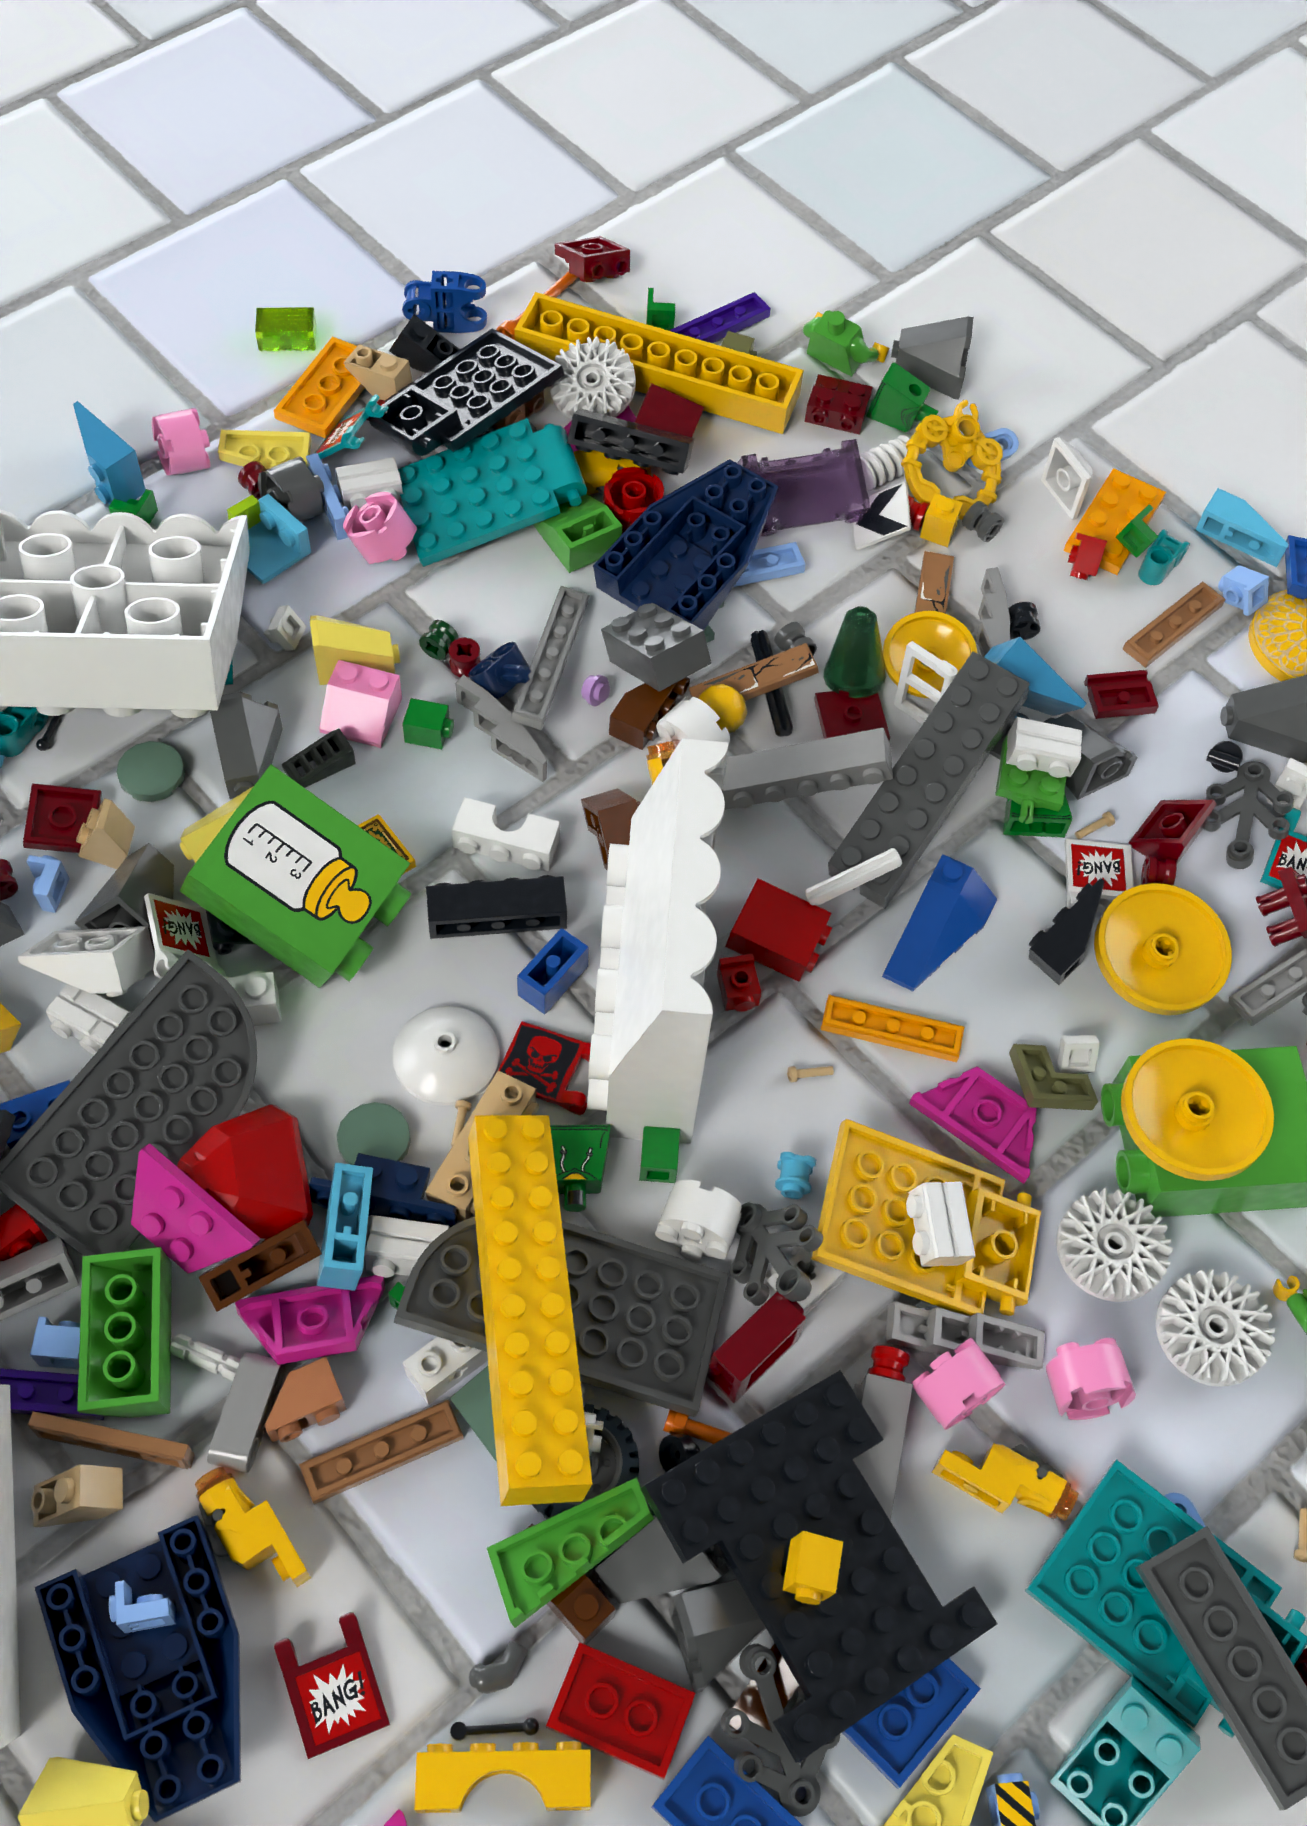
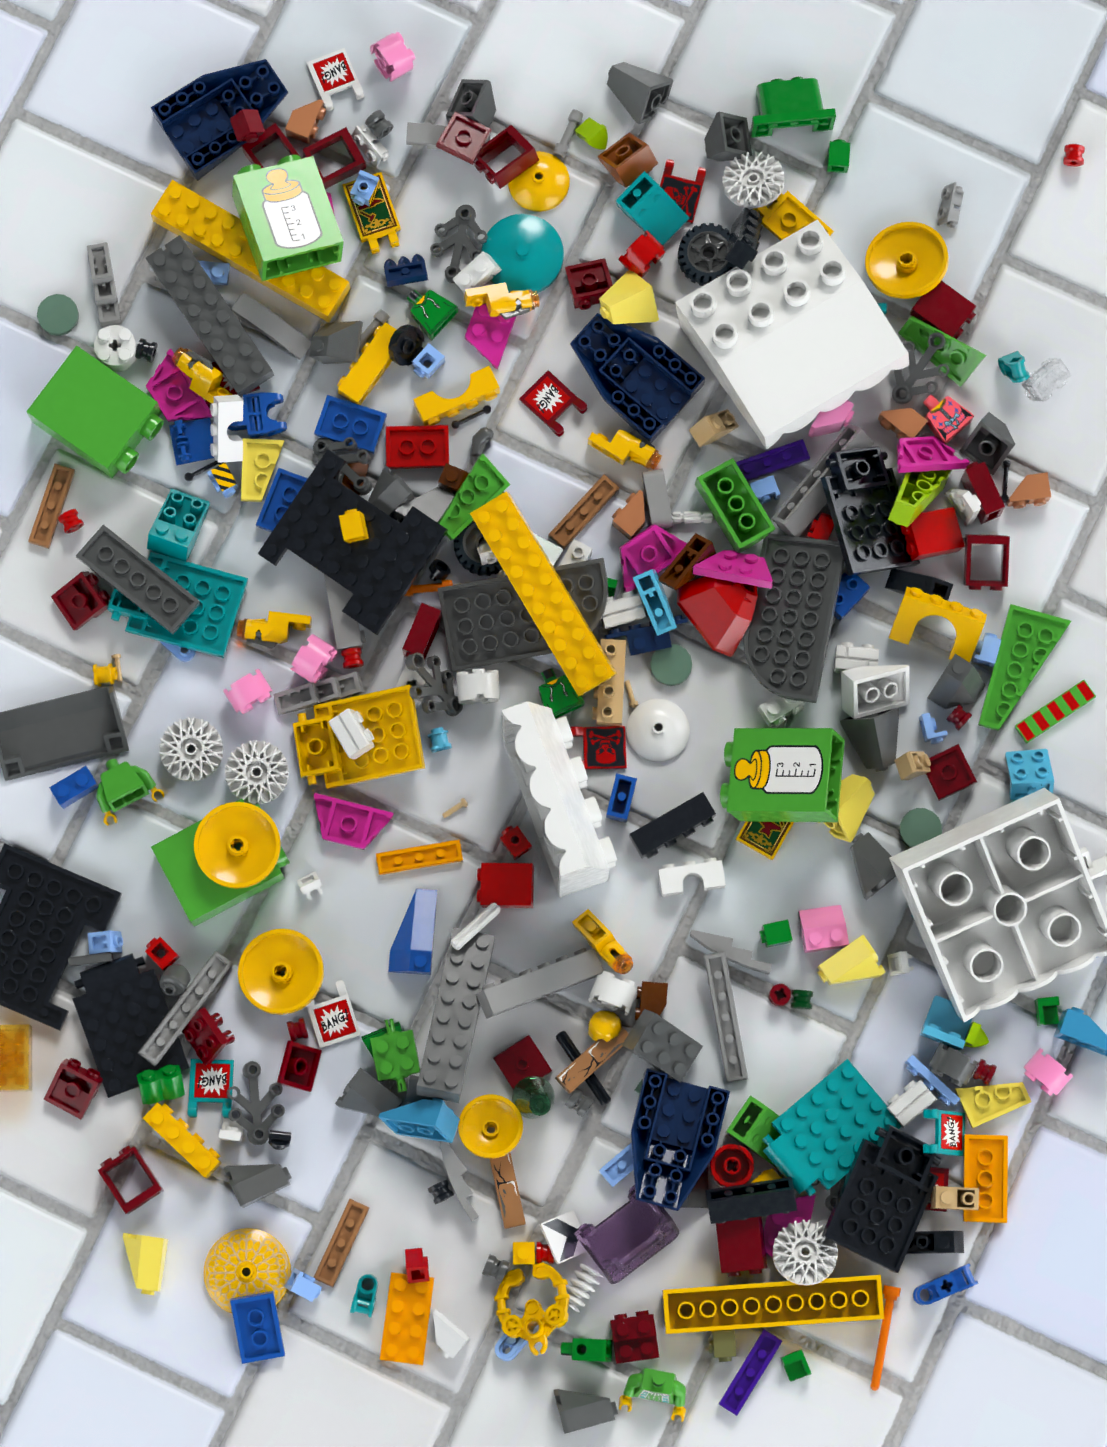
camera: 160 degrees right, 20 degrees up
(111, 1440) = (713, 458): medium nougat tile -> none
(148, 1612) = (649, 389): light blue bracket -> none
(178, 928) = (835, 718): flag -> none
(286, 328) = (1043, 1215): clear neon green brick -> none
(324, 746) = (819, 895): pearl dark grey slope -> none
(380, 528) = (880, 1060): bright pink brick -> none
(501, 670) = (749, 989): dark blue beam -> none
(594, 258) = (867, 1393): dark red plate -> none
(595, 689) = (687, 1007): lavender plate -> none
(609, 818) = (628, 907): reddish brown brick -> none
(907, 678) = (473, 1083): white window -> none
(1044, 747) = (394, 1062): white brick -> none
(1046, 1087) = (322, 853): olive plate -> none
(1065, 943) = (337, 952): black slope -> none
(1107, 819) = (340, 1060): tan piece -> none
(1121, 694) = (359, 1161): dark red plate -> none
(1137, 534) = (386, 1300): green panel -> none
(1241, 527) = (325, 1350): medium azure slope -> none

